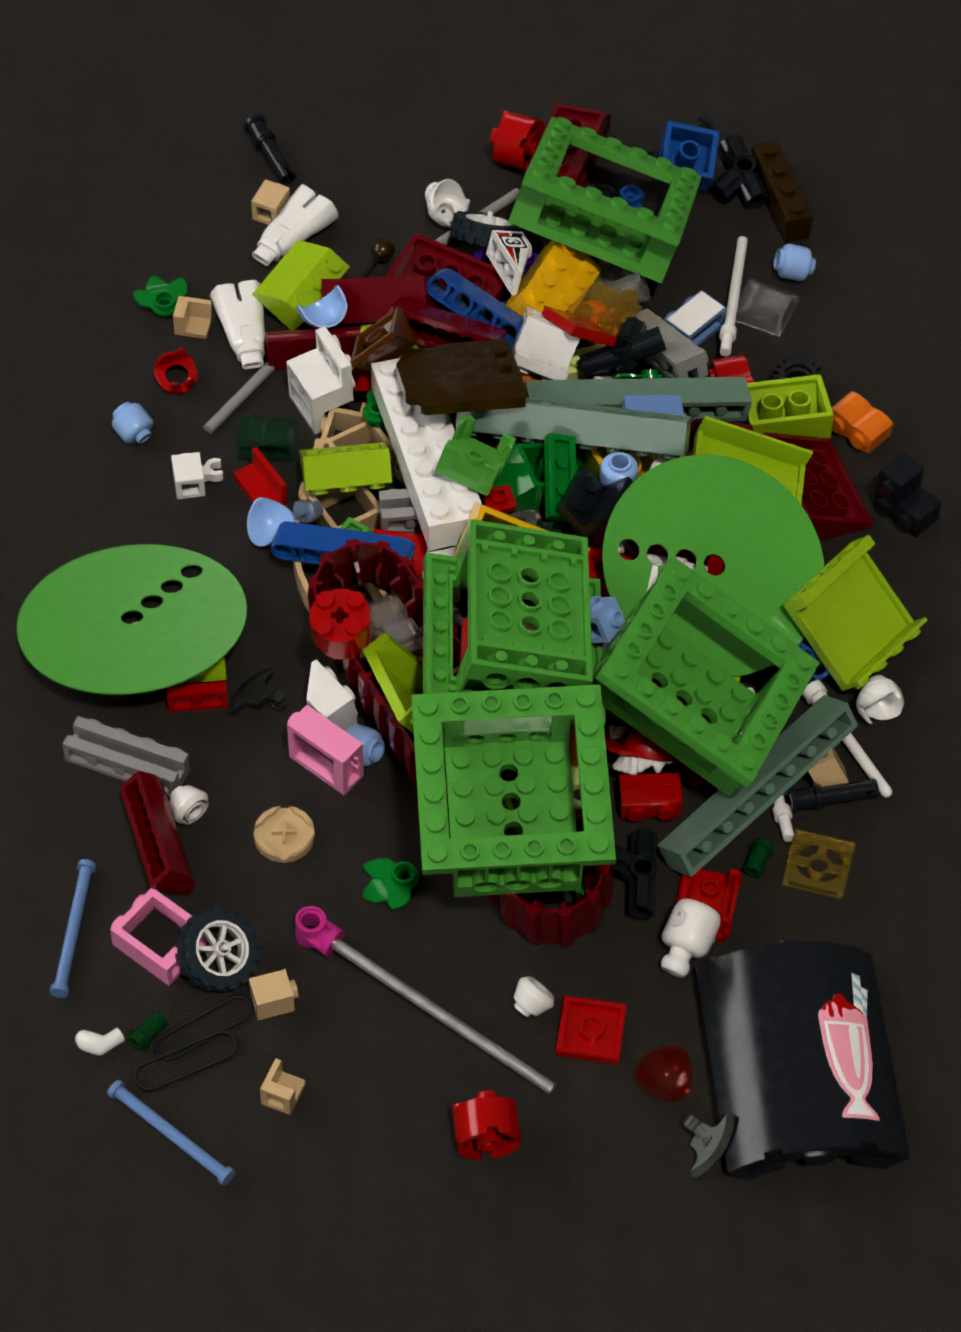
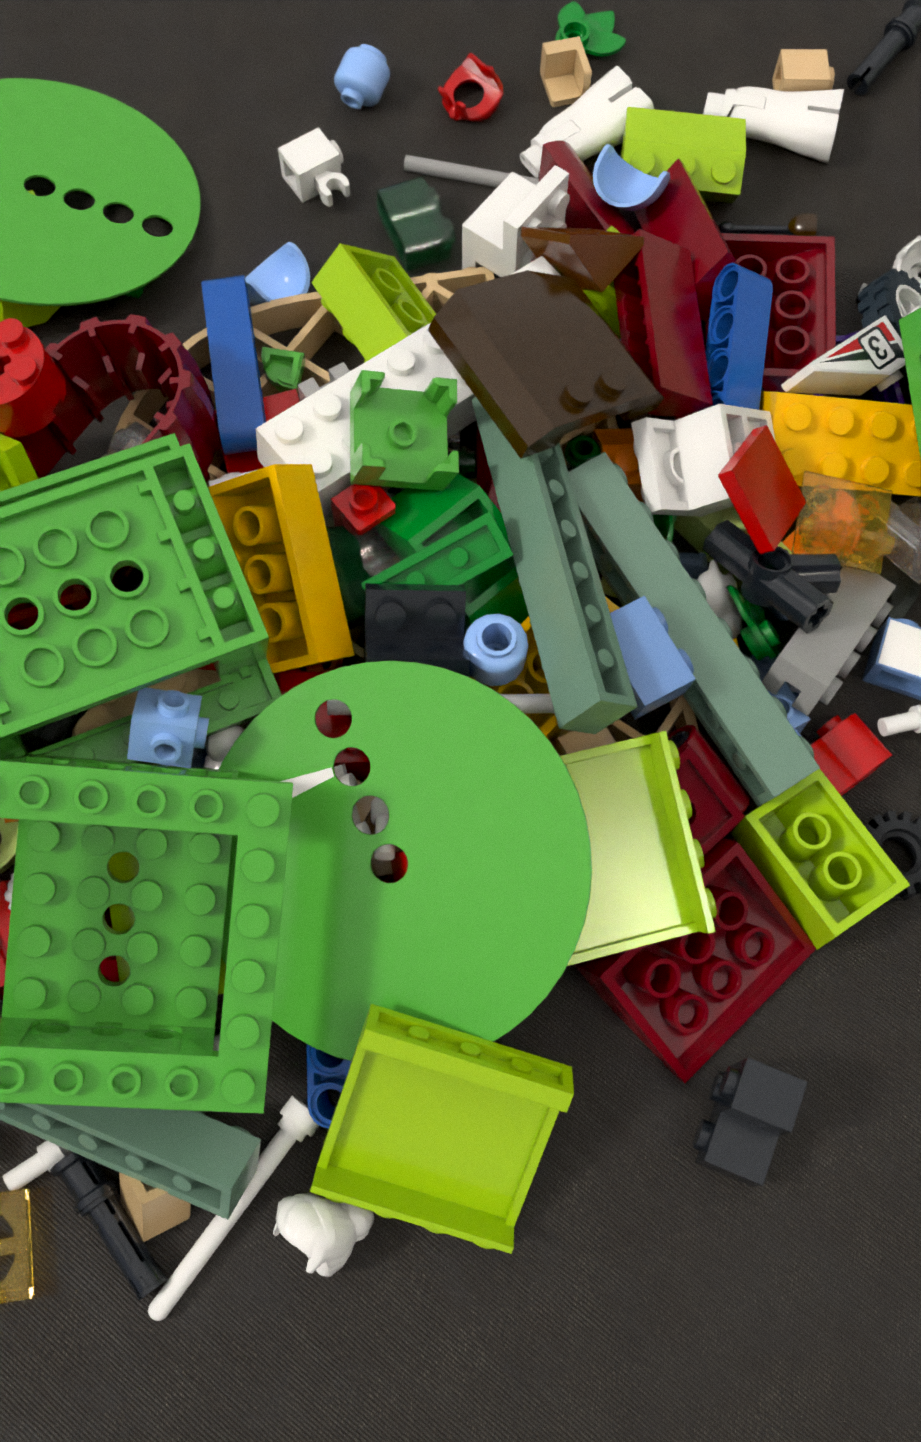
camera: 65 degrees right, 15 degrees up
(261, 480) = (346, 230): red panel -> none
(307, 511) = (291, 303): sand blue piece -> none
(861, 422) = (866, 984): orange brick -> none

